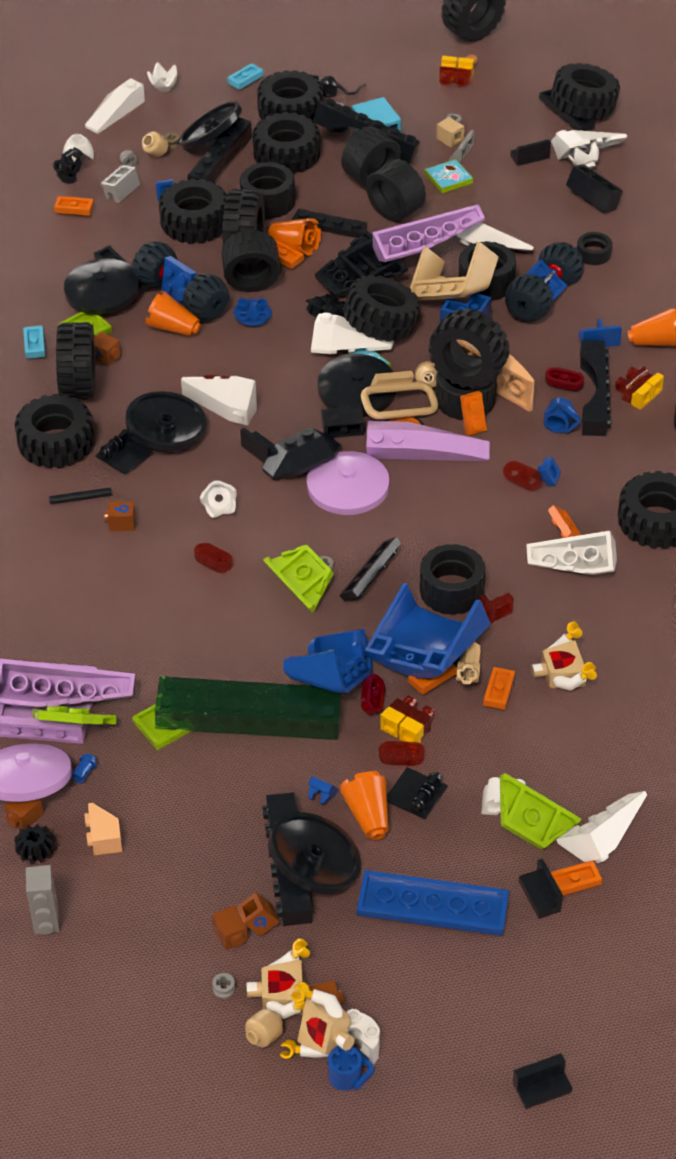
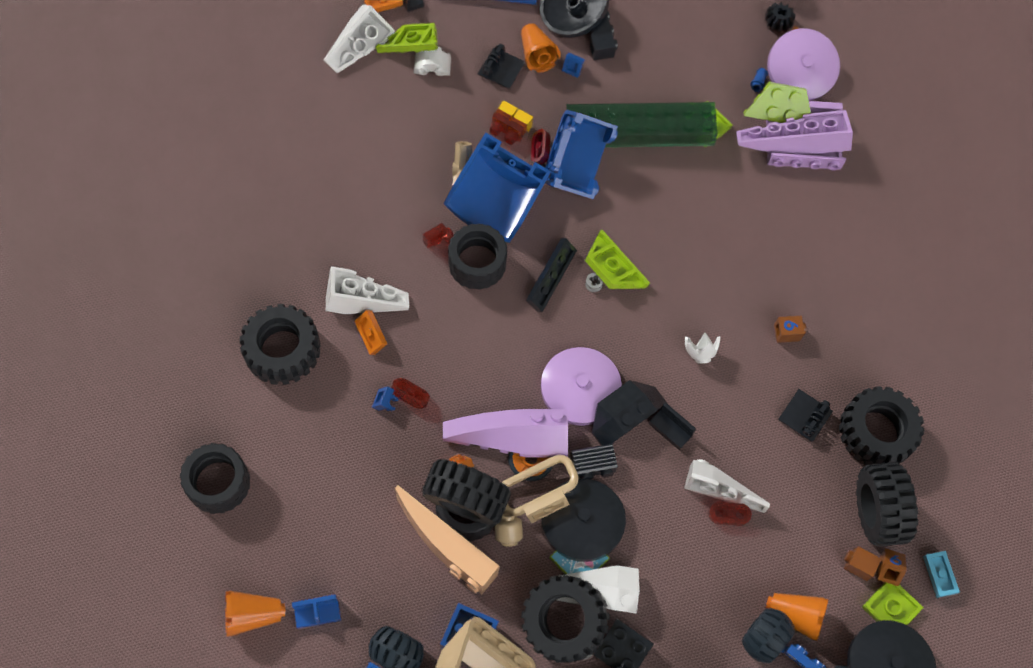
camera: 170 degrees right, 20 degrees up
(80, 495) = (834, 360): black bar -> none
(105, 831) = (732, 28): light nougat slope -> none
(165, 421) = (773, 447): black dish -> none
(213, 557) = (696, 285): clear red plate -> none
(252, 311) = (711, 637): blue dish -> none
(403, 753) = (514, 96): clear red plate -> none
(499, 688) = (436, 157): orange plate -> none
(559, 415) = (369, 473): blue piece -> none
(563, 662) = (380, 174): torso -> none
(564, 379) = (361, 538): dark red plate -> none
(594, 413) = (332, 479): black arch -> none
(639, 387) = (287, 520): hips -> none

